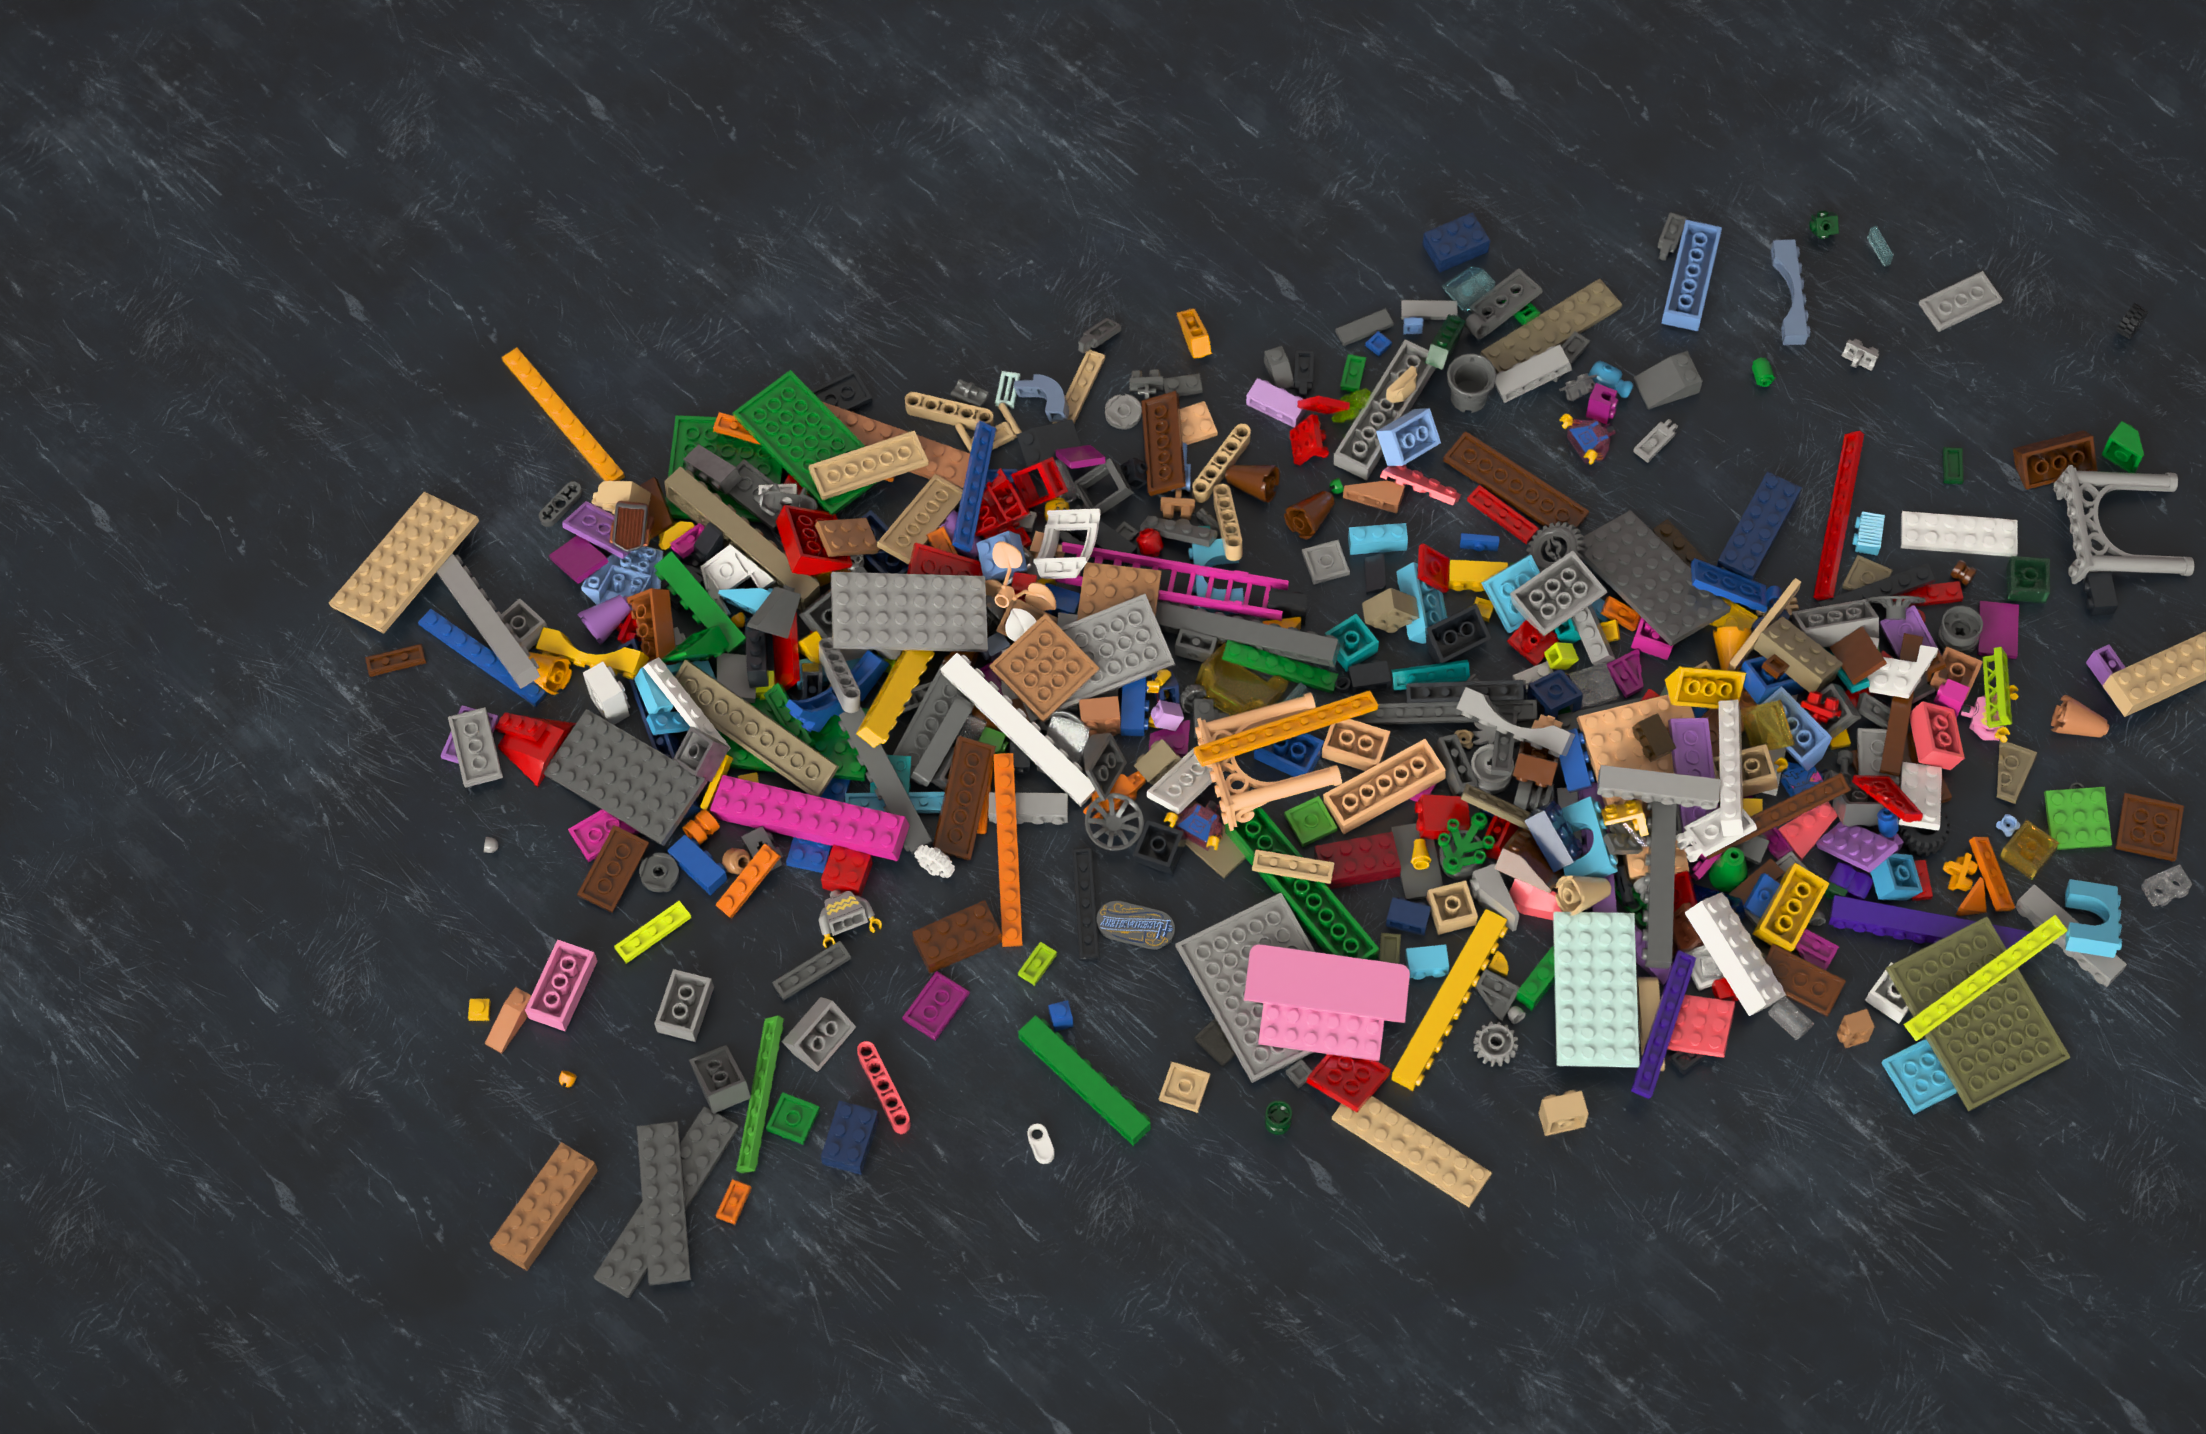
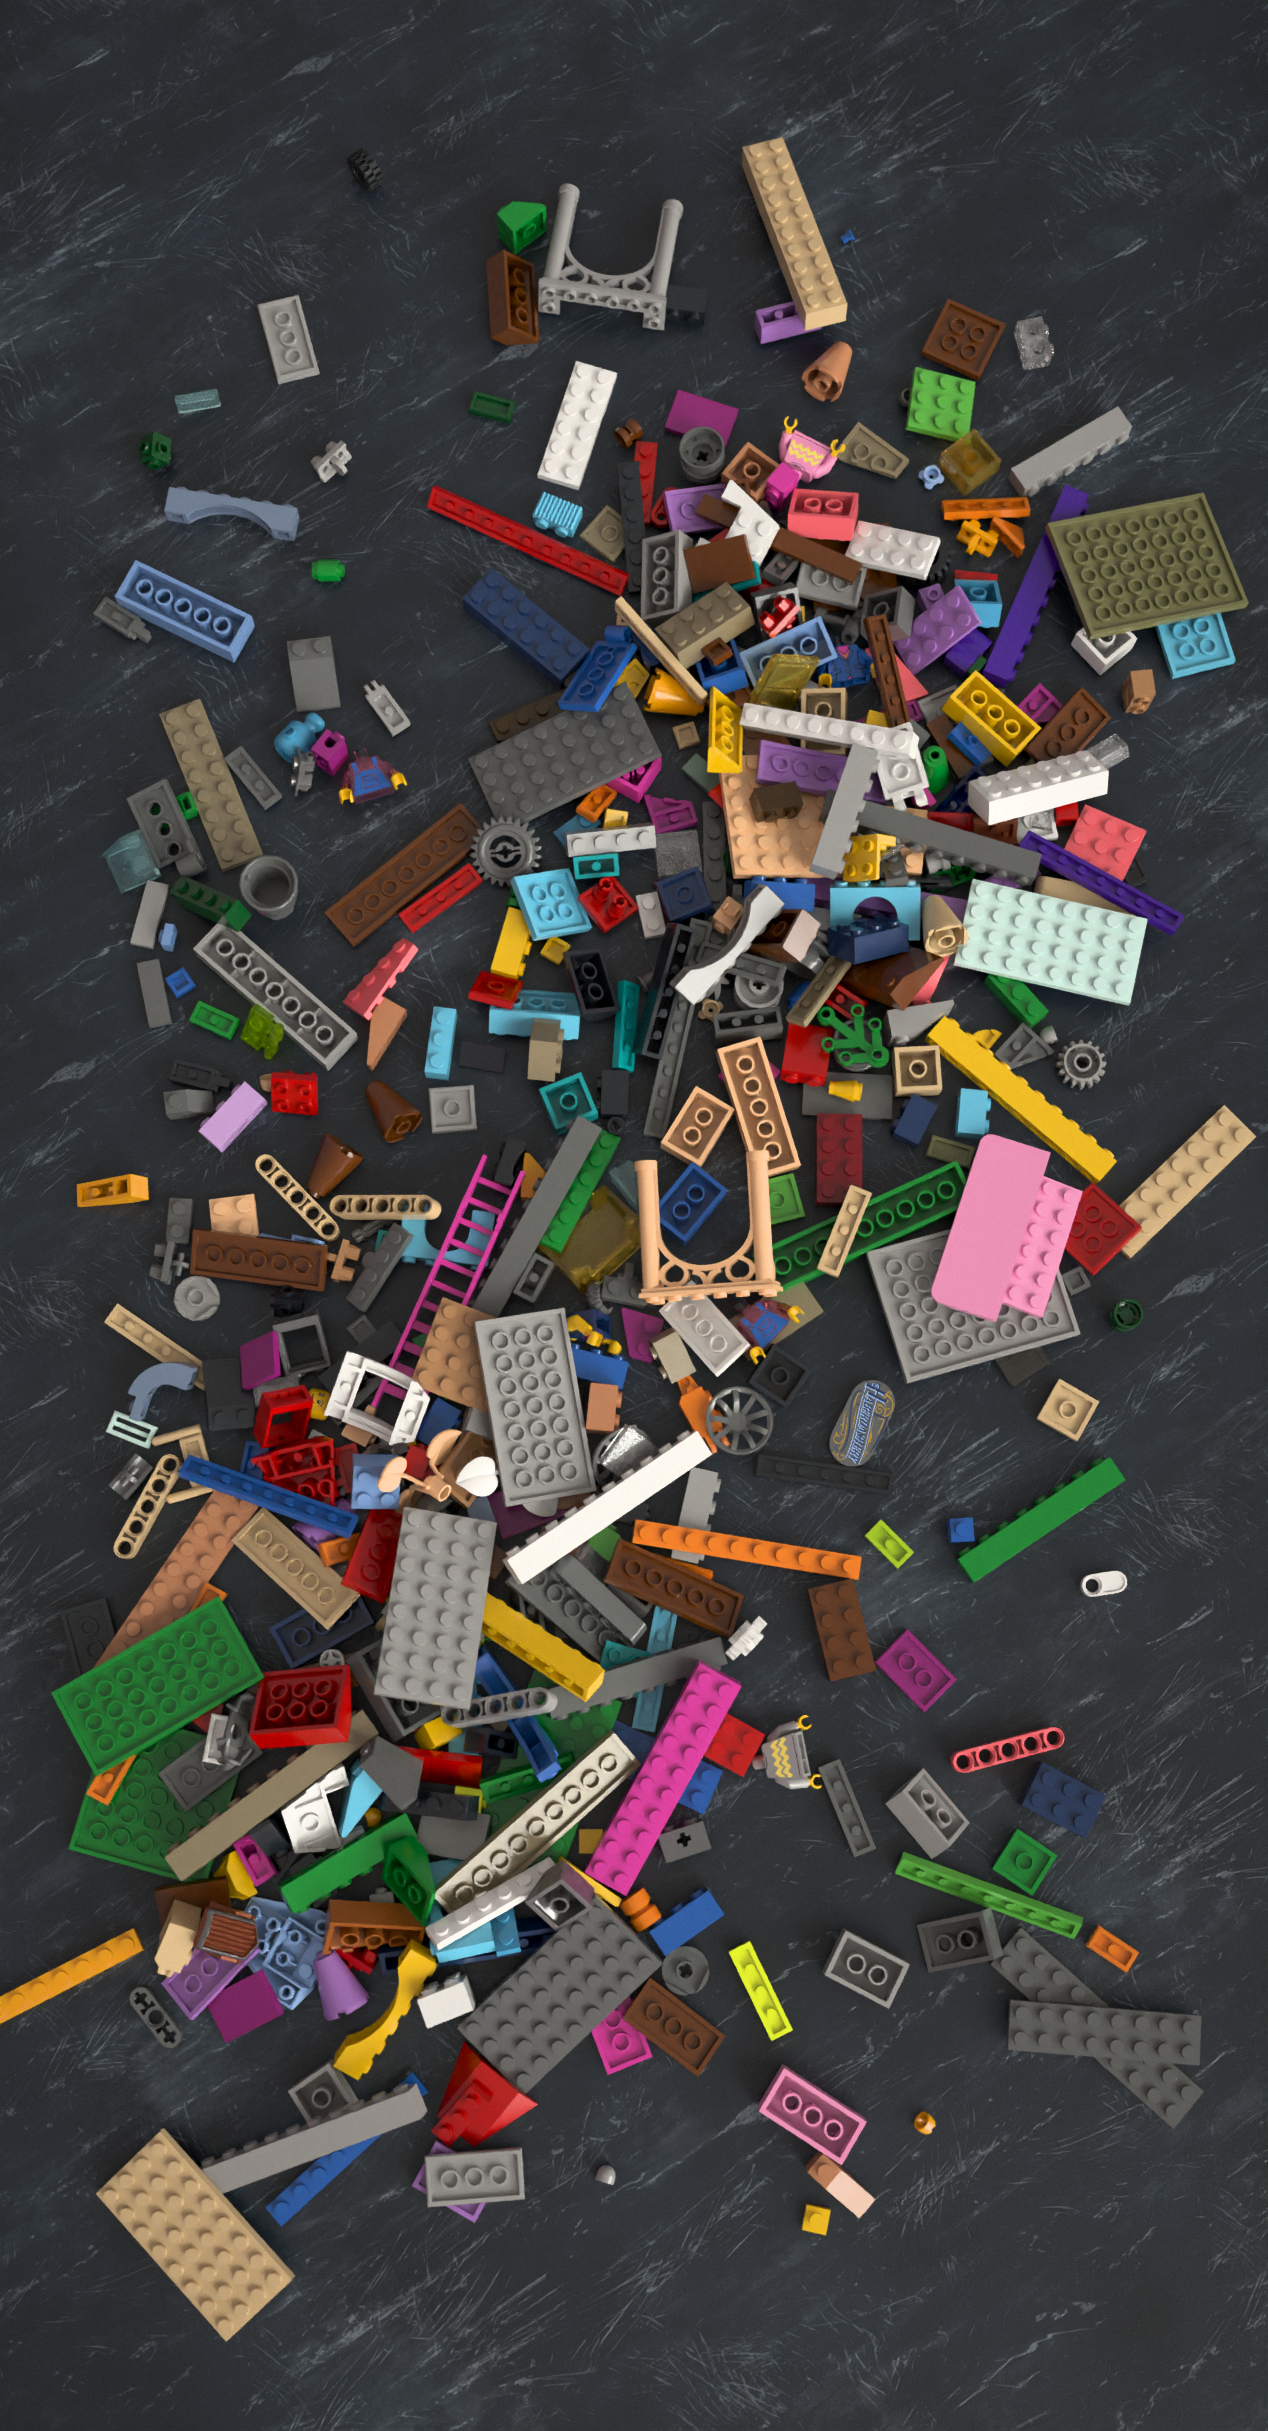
camera: 85 degrees left, 15 degrees up
(395, 660) = (325, 2262): reddish brown tile -> none
(544, 1206) = (1081, 2176): medium nougat brick -> none
(553, 672) = (390, 2069): light orange cone -> none
(712, 469) = (166, 1817): flat silver brick -> none
(736, 860) = (693, 1873): medium nougat head -> none
(748, 880) = (723, 1864): orange plate -> none
(847, 537) = (309, 1664): medium nougat plate -> none
(868, 465) = (210, 1620): tan plate -> none
(1044, 667) = (541, 1460): medium nougat plate -> none
(1098, 334) = (88, 1304): dark grey hinge -> none
(1103, 762) = (669, 1417): dark grey slope -> none
(1150, 542) = (386, 1303): red head -> none
(1167, 715) = (618, 1331): lavender brick -> none
(1285, 728) = (677, 1200): light orange plate -> none
(1323, 405) = (259, 1062): red tile -> none
(1338, 486) = (359, 1072): green hinge -> none
(1403, 386) = (260, 963): tan slope -> none
(1408, 437) = (325, 976): light blue brick -> none
(1456, 242) = (69, 861): dark blue brick -> none
(1479, 542) = (471, 932): blue plate -> none
(1532, 373) = (269, 815): light grey brick -> none
(1557, 593) = (576, 858): light grey slope -> none
(1561, 656) = (636, 878): neon yellow brick -> none
(1563, 1112) = (1177, 1012): tan brick -> none
(1887, 823) = (921, 589): blue brick -> none
(1889, 795) = (896, 577): red wing -> none
(1896, 611) = (670, 512): dark grey wheel -> none
(1985, 978) = (1118, 544): neon yellow plate -> none
(2002, 689) = (785, 428): lime fence -> none
(2028, 579) = (654, 369): clear green brick -> none
(2104, 902) = (1044, 406): medium azure arch -> none

